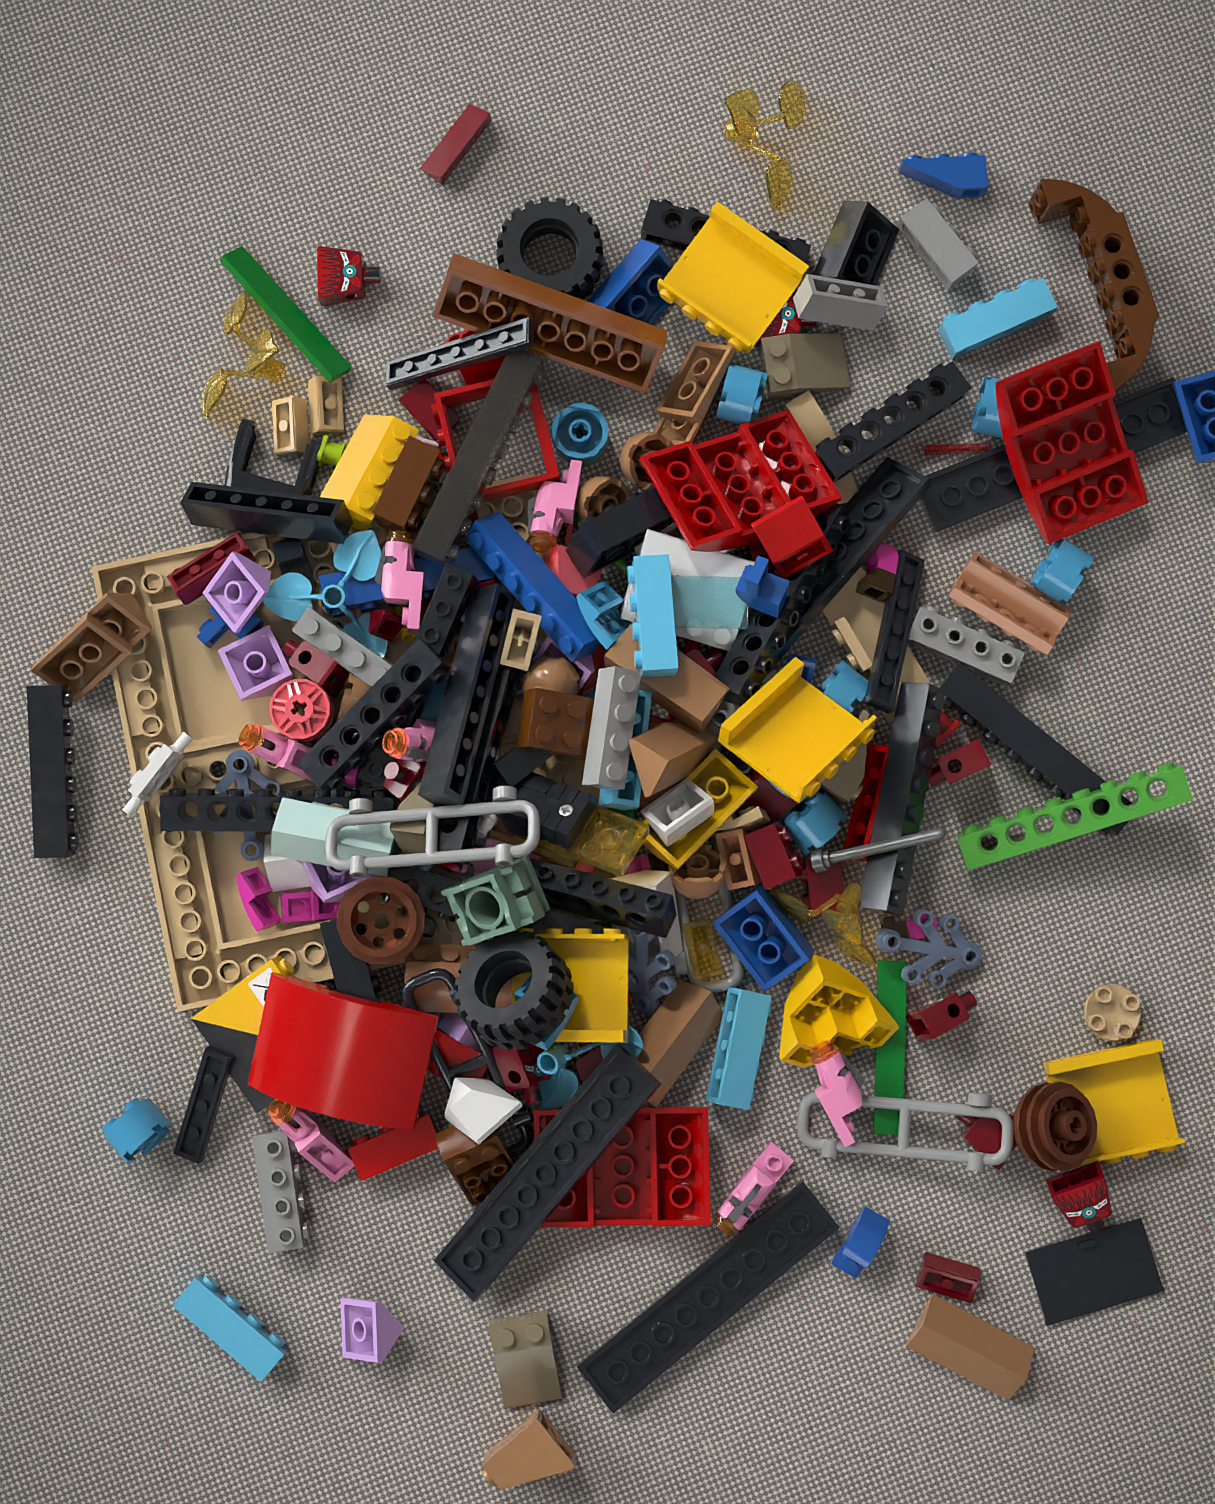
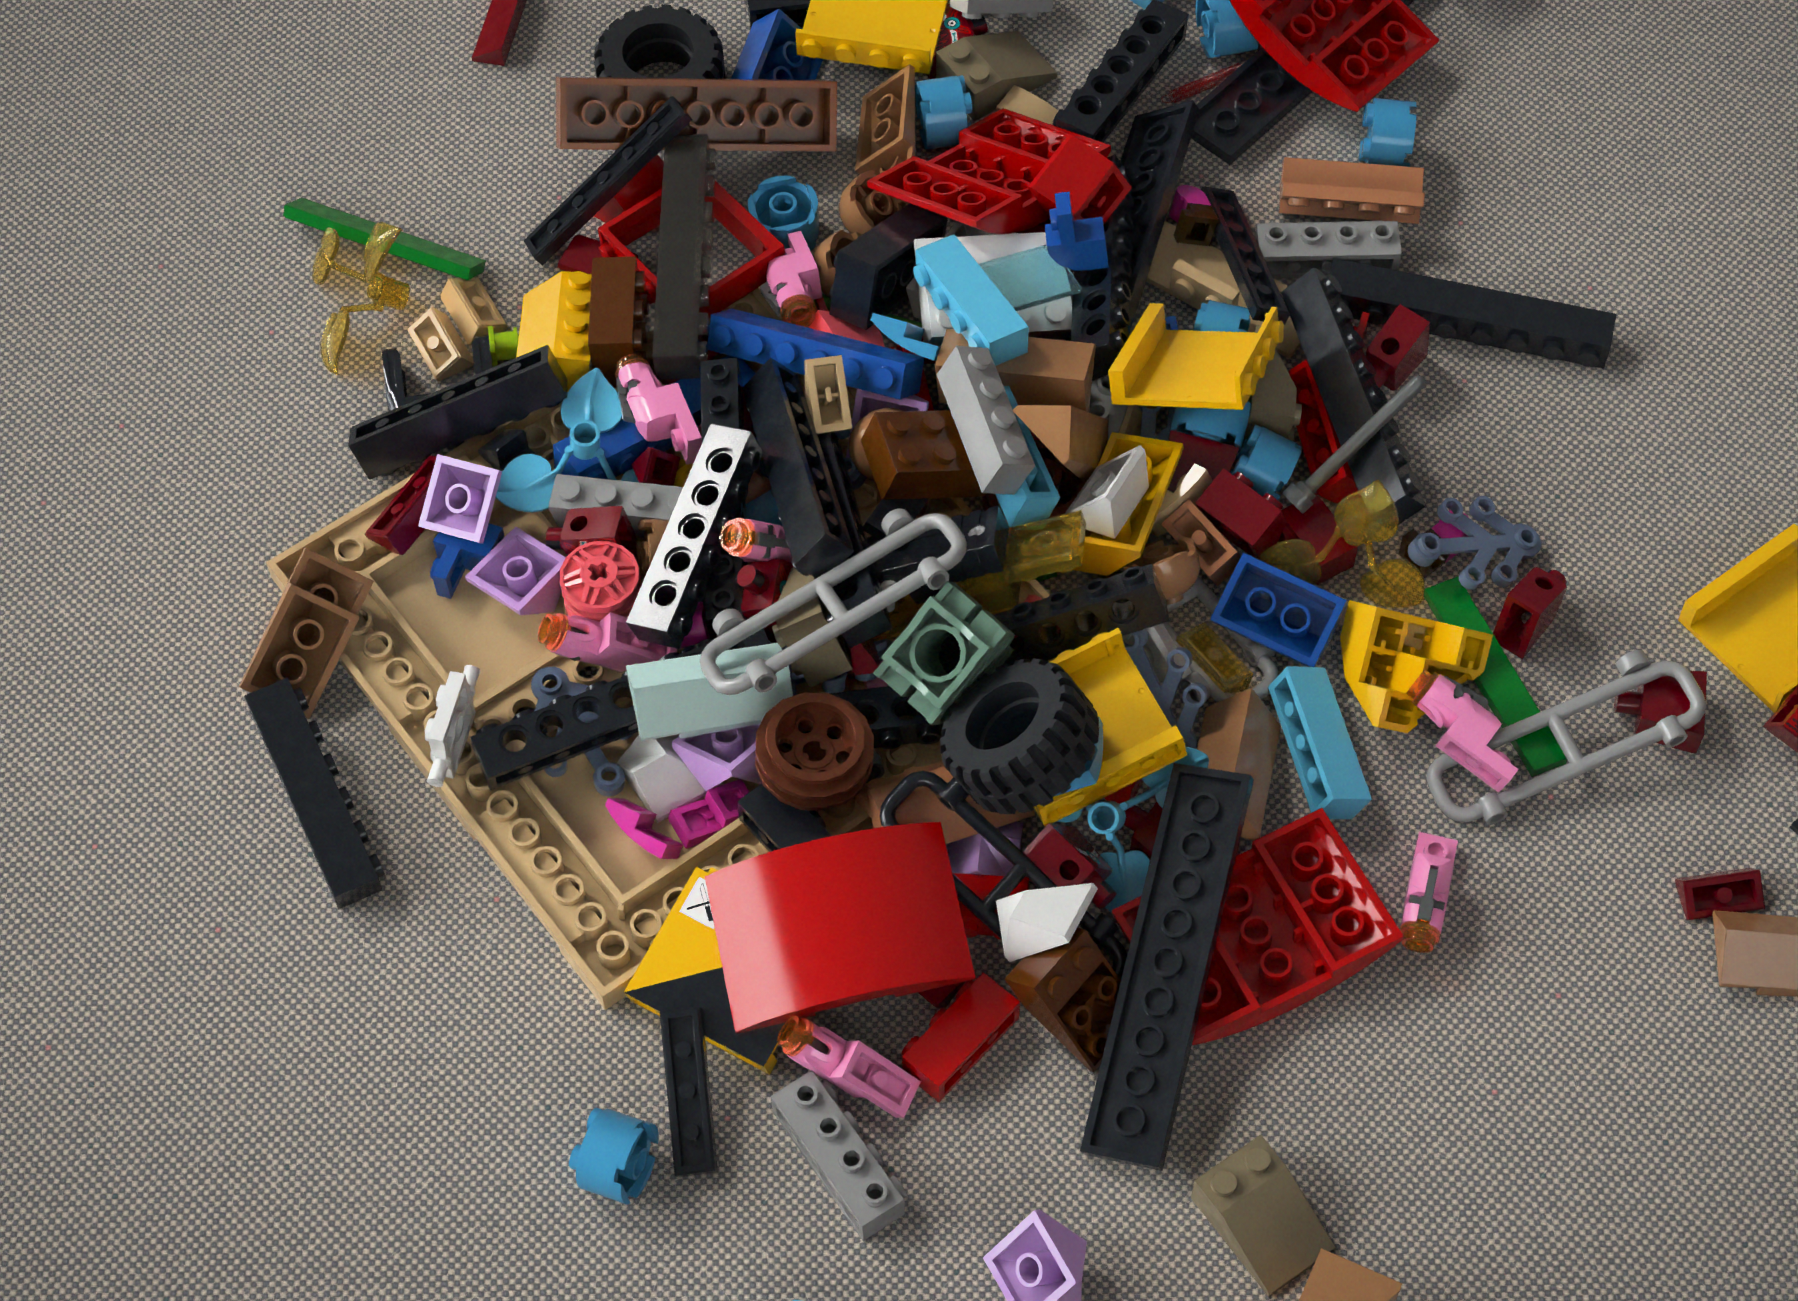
camera: 25 degrees left, 25 degrees down
(343, 275) = (433, 178): torso -> none
(707, 1297) = (1444, 1044): black plate -> none
(862, 1242) = (1595, 892): blue brick -> none
(1055, 1126) = (1736, 651): copper wheel -> none
(1112, 1012) = (1722, 531): tan dish -> none
(1175, 793) = (1468, 435): bright green brick -> none

